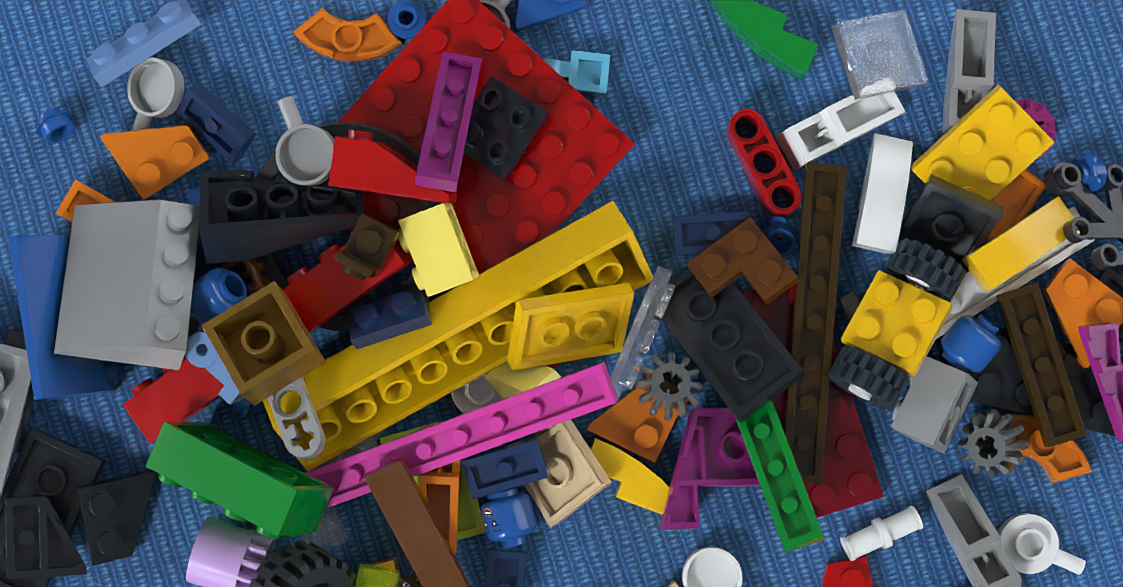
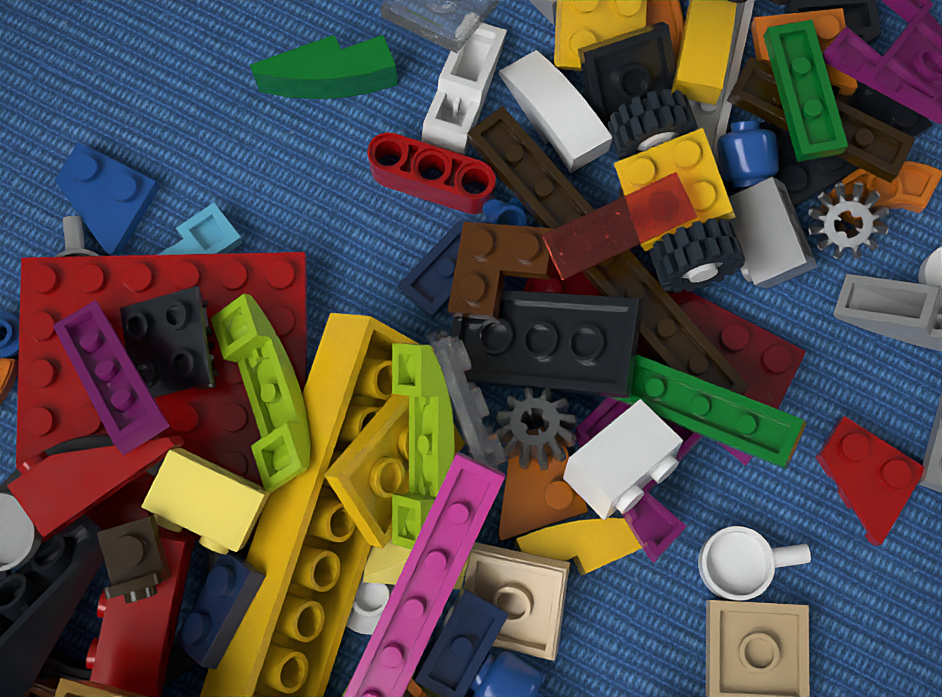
camera: 50 degrees left, 10 degrees down
(535, 215) = (271, 387): none -> lime slope
(598, 336) = (430, 437): none -> lime slope
(700, 455) = (623, 460): none -> white brick
(835, 316) = (619, 226): none -> clear red plate
(881, 533) = (836, 384): white pin -> none
(1045, 339) = (805, 90): none -> green plate

